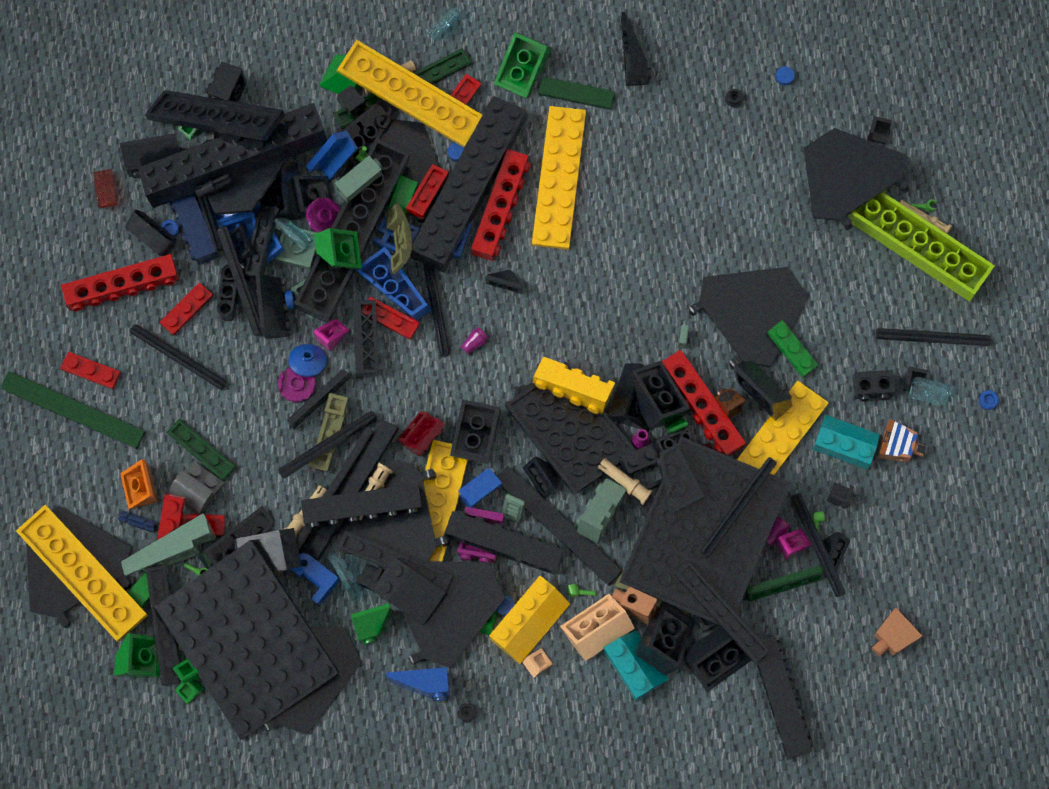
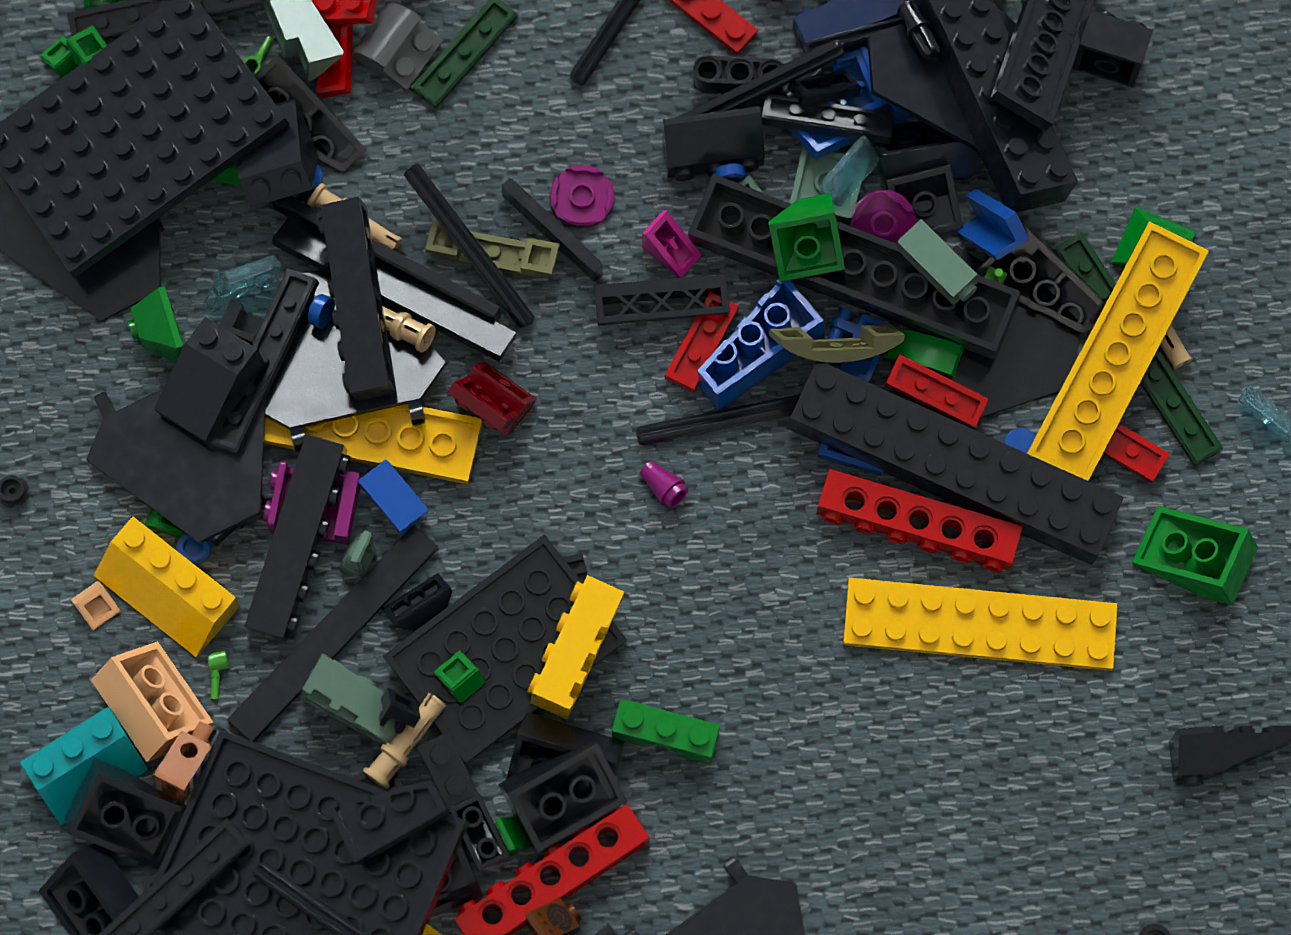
camera: 85 degrees right, 0 degrees up
(307, 366) = (610, 216): blue dish -> none
(318, 576) = (248, 240): blue piece -> none
(351, 101) = (1099, 256): black panel -> none
(364, 529) = (321, 311): none -> blue tile
(426, 682) = (55, 415): blue slope -> none
(475, 431) = (494, 487): black slope -> none
(505, 280) = (779, 535): black slope -> none
(576, 93) = (1147, 652): dark green tile -> none
(587, 451) = (460, 676): none -> green slope
(610, 481) = (400, 708): none -> black tile
(619, 341) = (653, 726): none -> green arch
(639, 442) = (489, 781): magenta cone -> none
(683, 336) = (678, 845): sand green tile -> none

